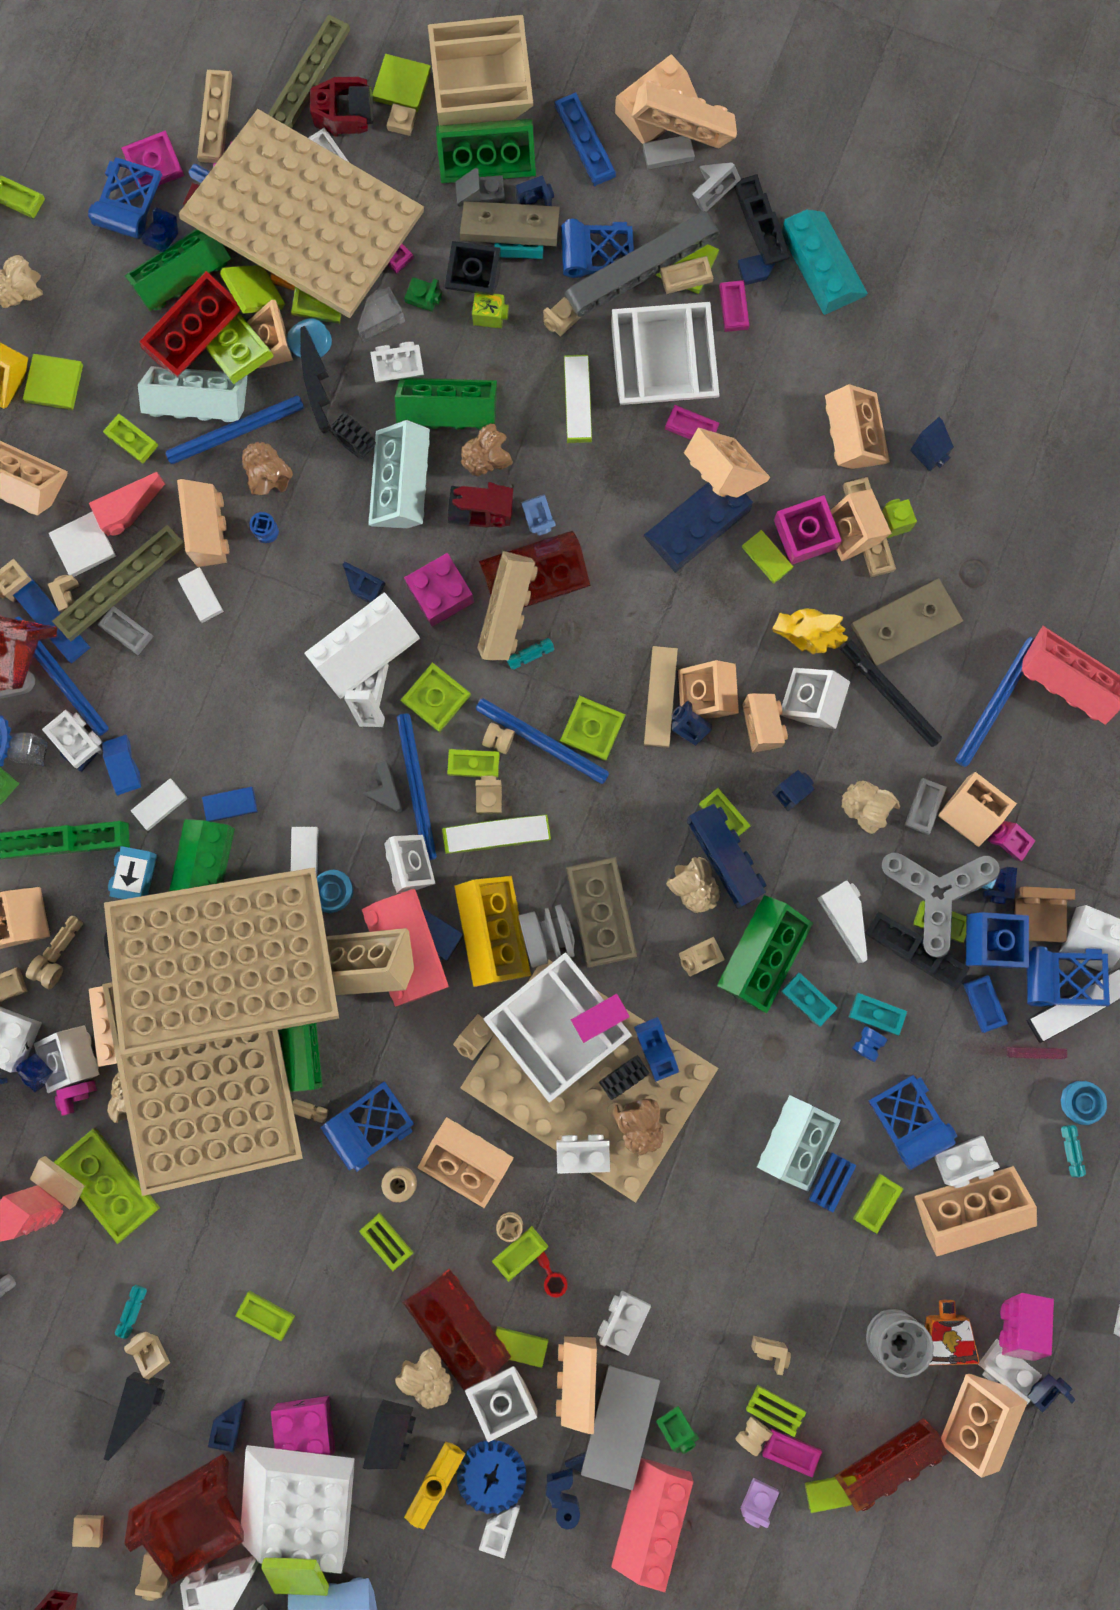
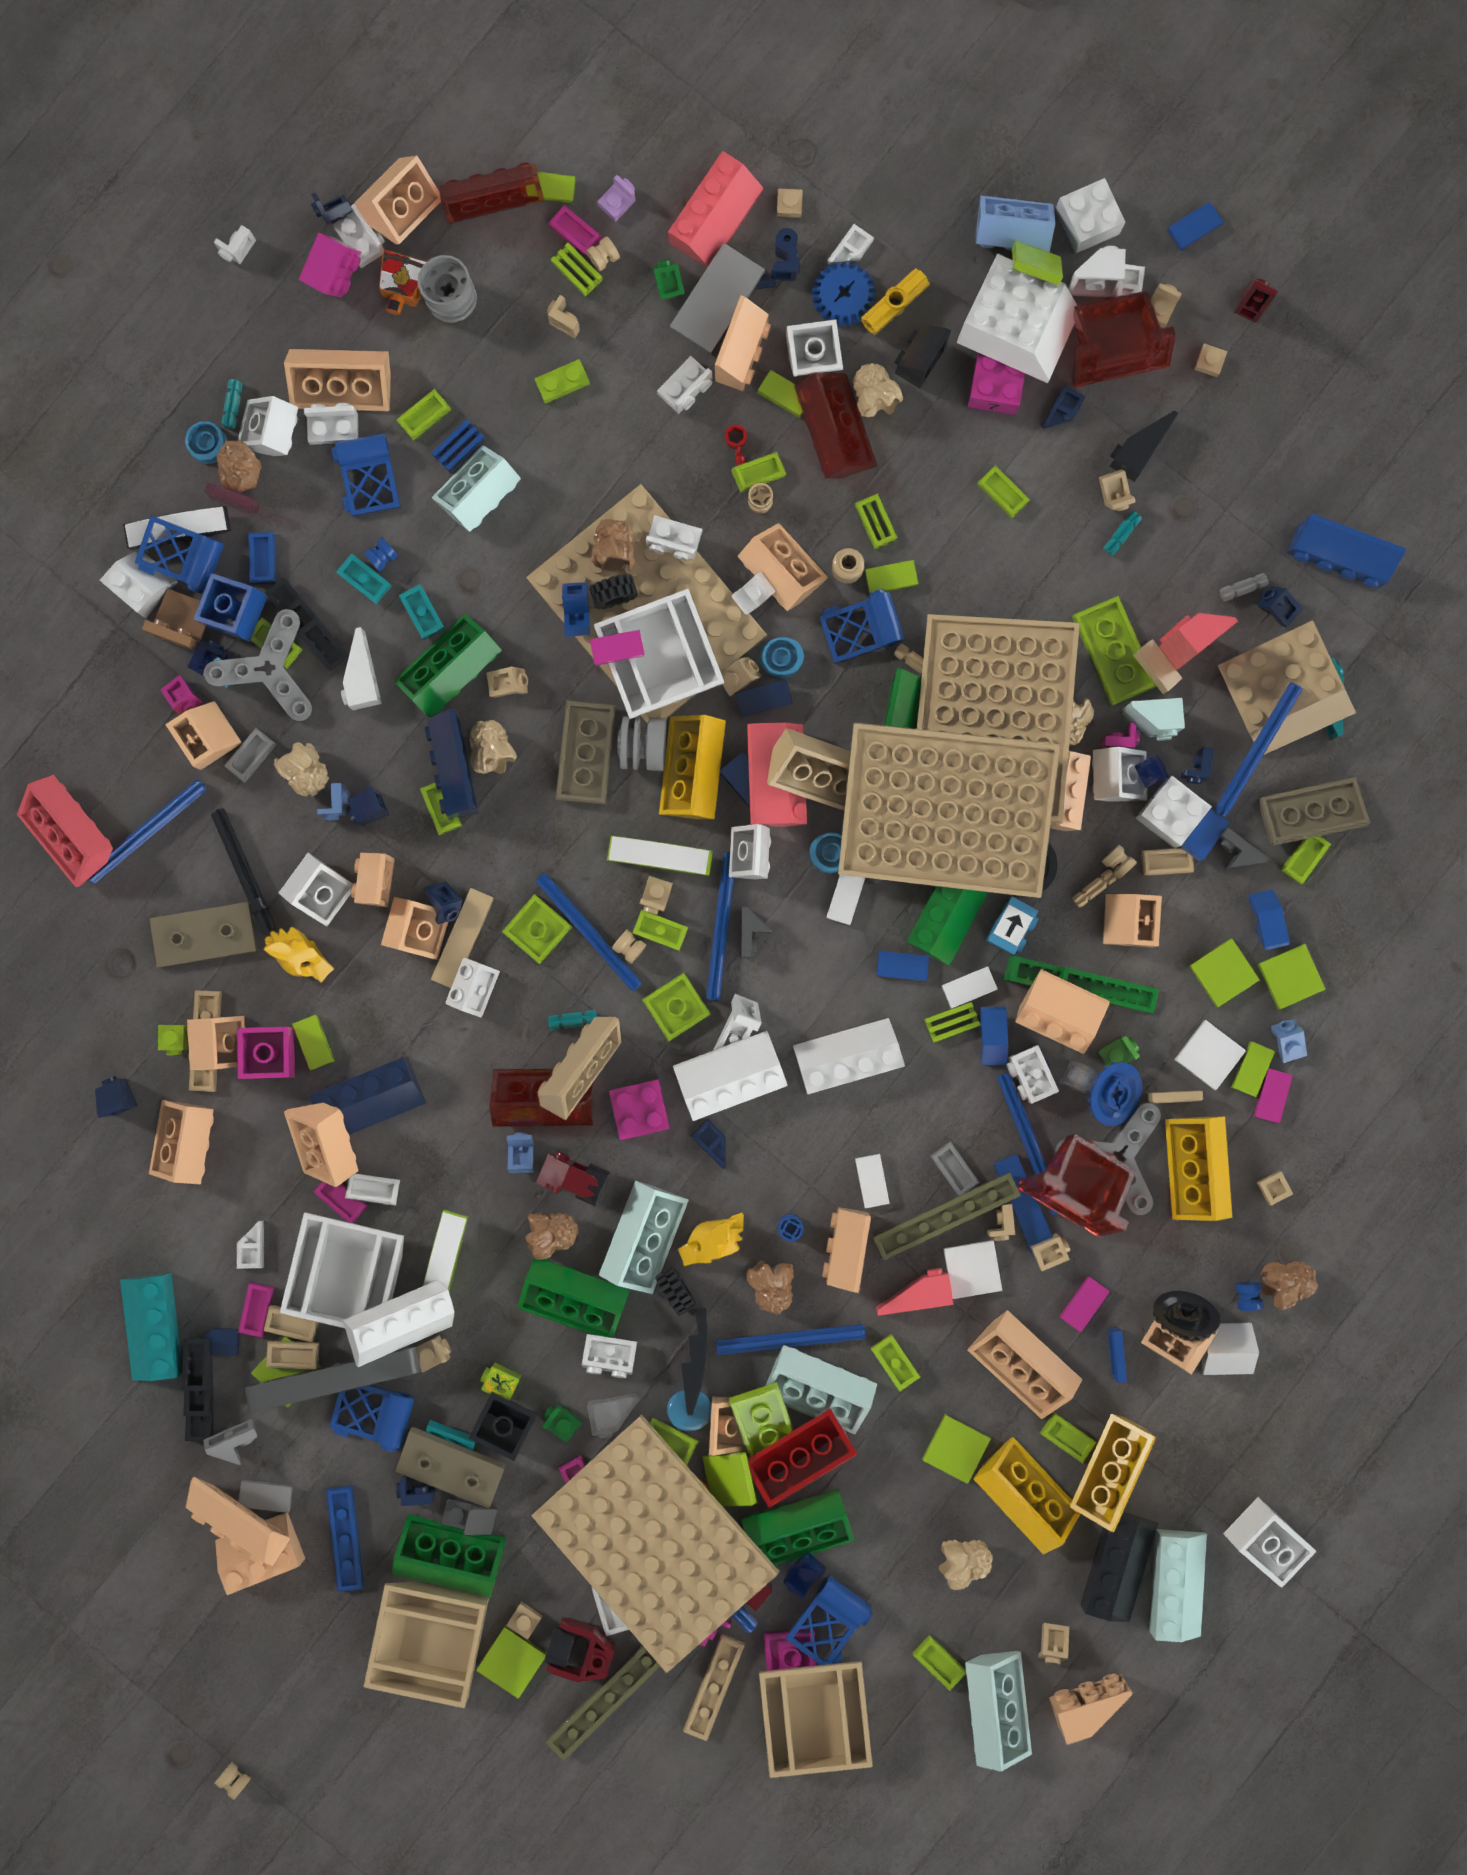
camera: 165 degrees left, 5 degrees up
(39, 1127) = (1157, 717): none -> light aqua slope
(59, 805) = (1062, 1011): none -> light nougat slope
(111, 109) = (815, 1719): none -> tan slope
(162, 757) = (972, 1014): none -> lime tile
(255, 701) = (848, 1056): none -> white slope
(331, 492) = (713, 1240): none -> yellow piece
(353, 1188) = (891, 577): none -> lime tile
(438, 1070) = (781, 657): none -> dark azure piece
(443, 1022) = (763, 698): none -> dark blue slope
(485, 1124) = (753, 593): none -> white bracket
(578, 1559) = (789, 203): none -> tan plate
(598, 327) = (399, 1322): none -> white slope
(635, 652) = (472, 987): none -> white bracket
(664, 441) = (372, 1189): none -> white tile
(702, 295) = (290, 1325): none -> tan tile
(750, 1285) = (562, 381): none -> lime plate
(758, 357) = (251, 1248): none -> white tile
(823, 790) = (339, 799): none -> medium blue bracket
(1029, 1138) = (268, 425): none -> white slope
(1042, 1085) = (238, 466): none -> medium nougat hair

